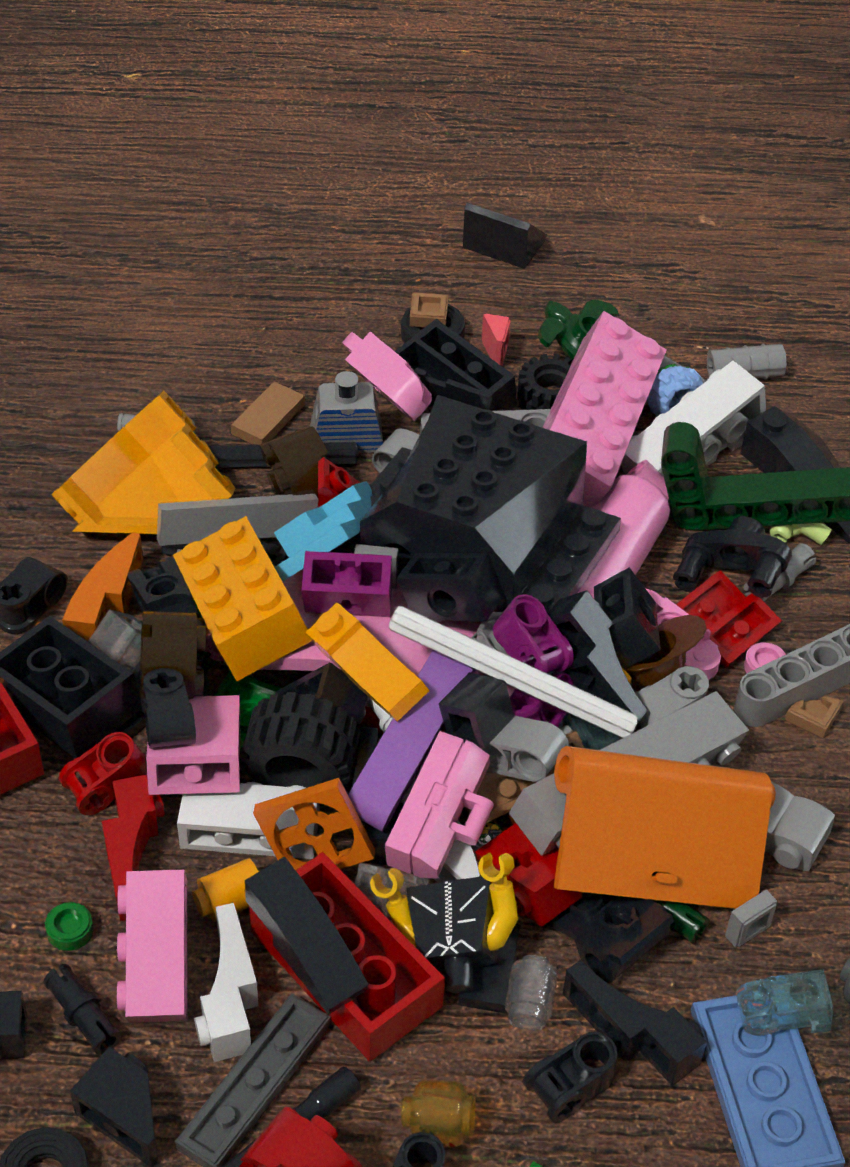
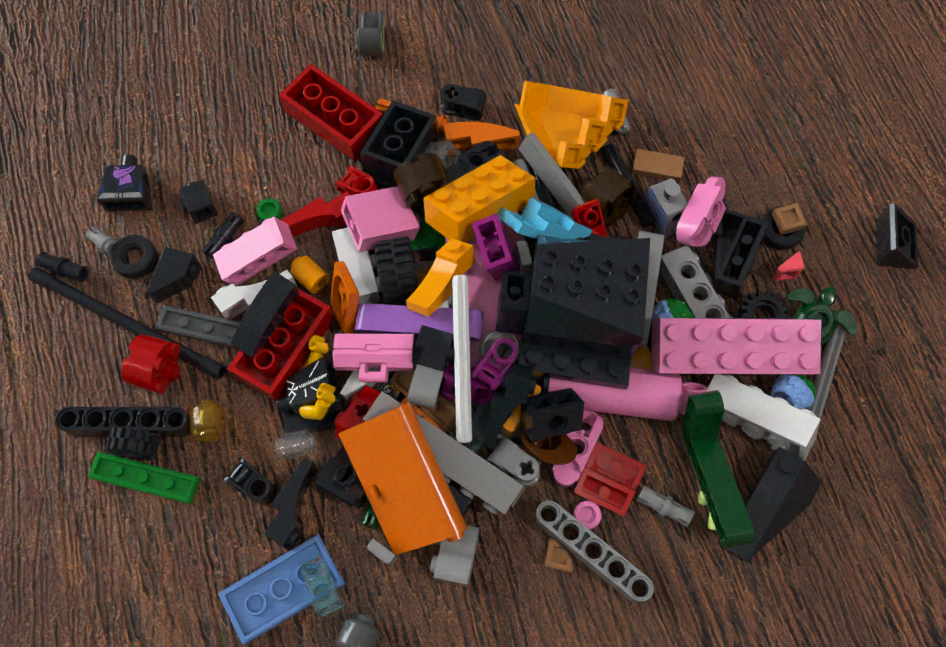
camera: 75 degrees right, 20 degrees up
(168, 710) = (375, 192): black piece -> none
(740, 548) = (667, 471): black connector -> none
(759, 361) = (854, 434): light grey axle -> none

